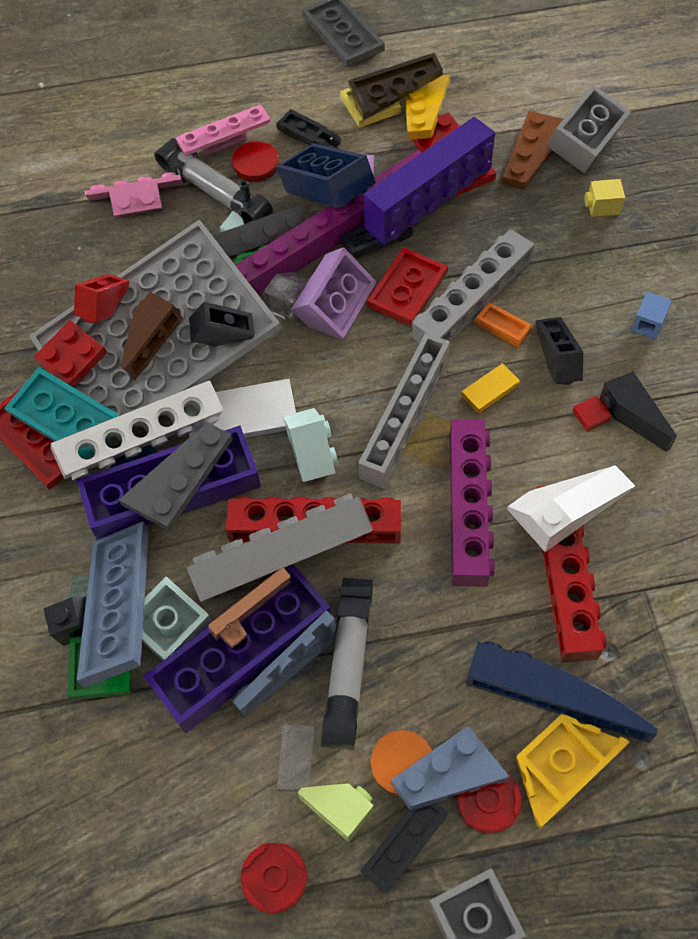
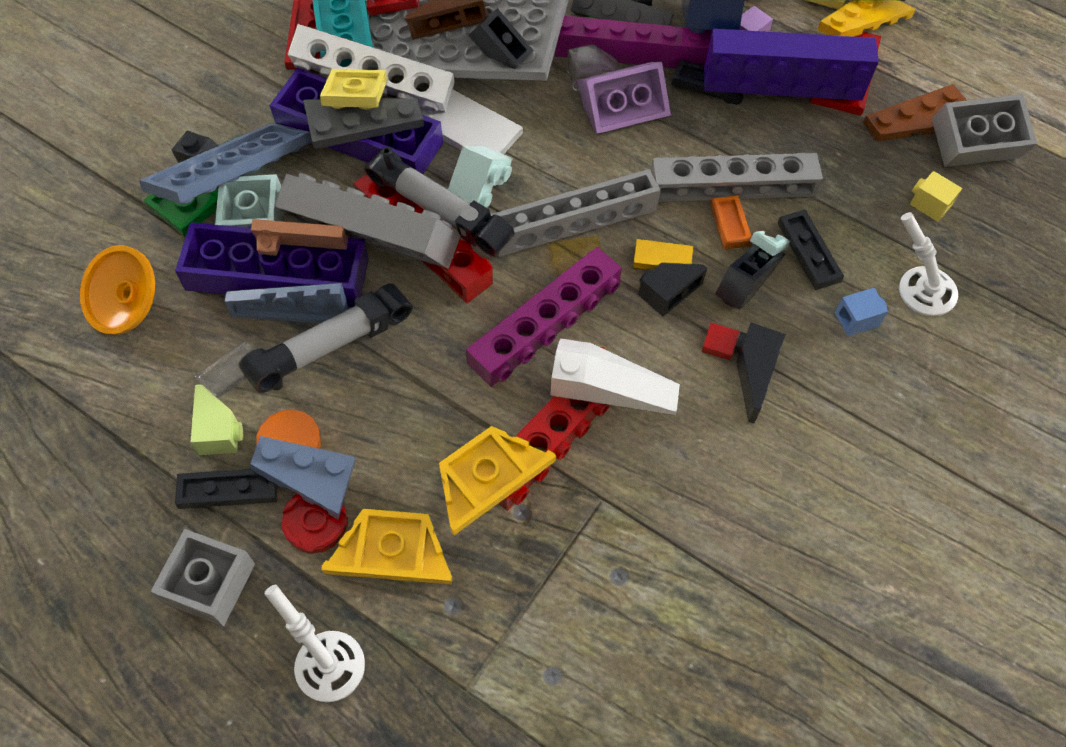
camera: 40 degrees right, 0 degrees up
(130, 799) = (117, 290): none -> light orange dish
(154, 455) = (353, 88): none -> light yellow plate
(273, 878) = (129, 427): red tile -> none
(359, 479) = (470, 219): none -> piece
(407, 286) = (689, 133): red plate -> none
(521, 404) = (670, 284): none -> black slope
(547, 318) = (769, 244): none -> light aqua tile
(552, 689) = (423, 449): dark blue slope -> none
(574, 300) = (810, 249): none -> black plate
(577, 646) = (487, 473): none -> yellow wing
(601, 875) = (323, 657): none -> white dish
(664, 263) = (932, 281): none -> white dish

